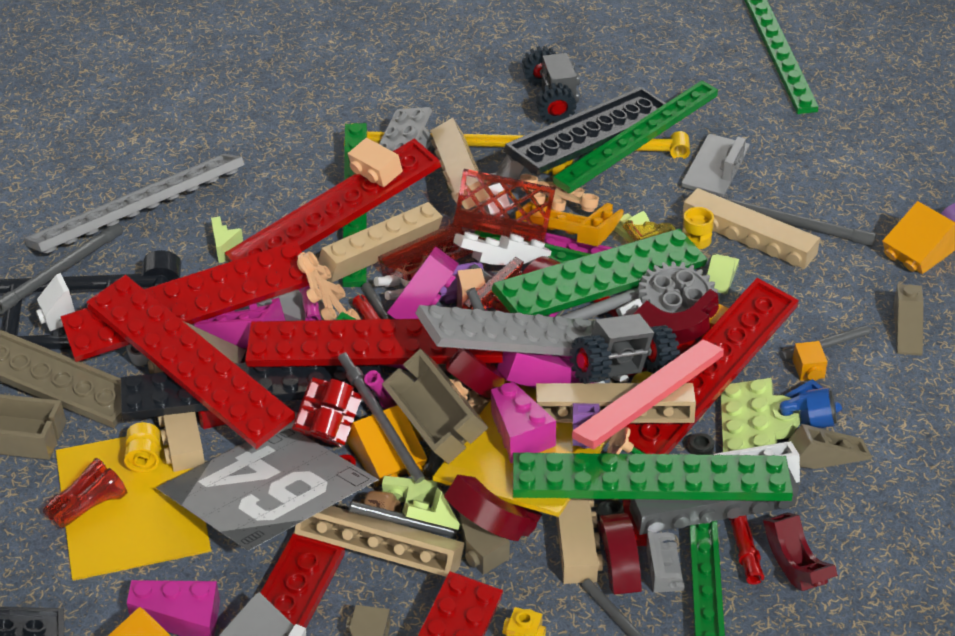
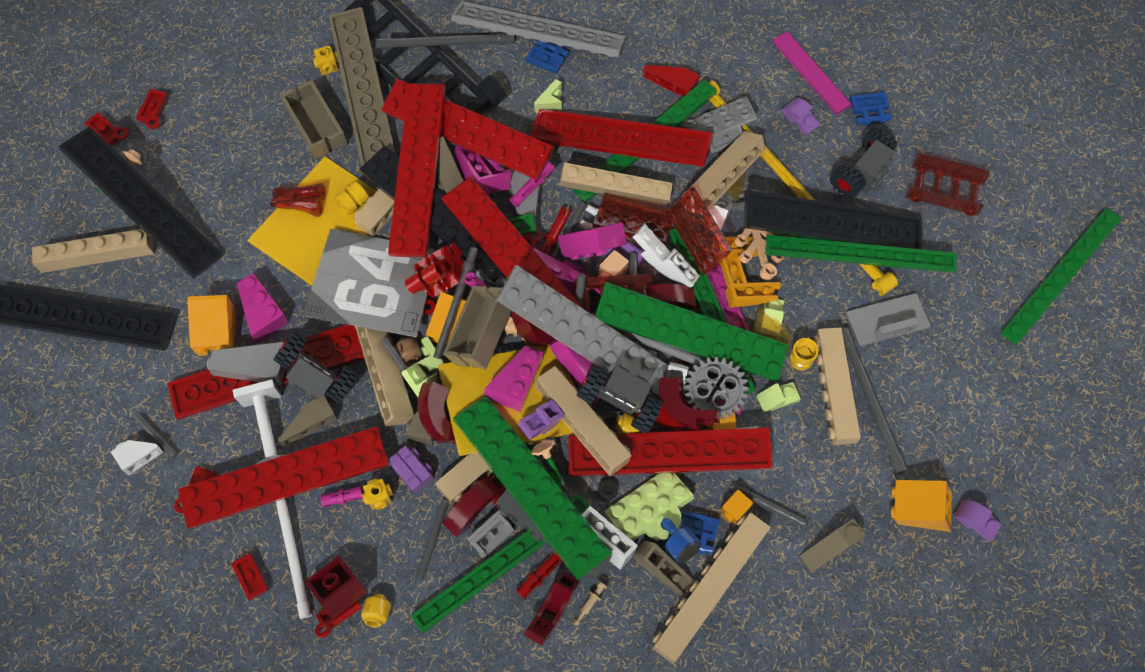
camera: 50 degrees right, 25 degrees up
(54, 302) = (410, 68): white slope -> none
(172, 216) = (545, 59): none -> blue plate
(312, 149) = (672, 78): none -> red slope
(319, 592) = (310, 374): none -> brick
(327, 291) = (538, 191): light nougat plant -> none
(375, 162) = (666, 129): light nougat brick -> none
(416, 70) = (812, 73): none -> dark pink tile
(448, 95) = (799, 112): none -> medium lavender brick
(492, 56) = (870, 103): none -> blue plate
(524, 585) = (411, 469): none -> medium lavender brick
(624, 45) = (951, 169): none -> clear red fence
(647, 394) = (595, 437): coral tile -> none
(811, 520) = (590, 602): none -> tan piece
(881, 429) = (711, 588): none -> tan brick

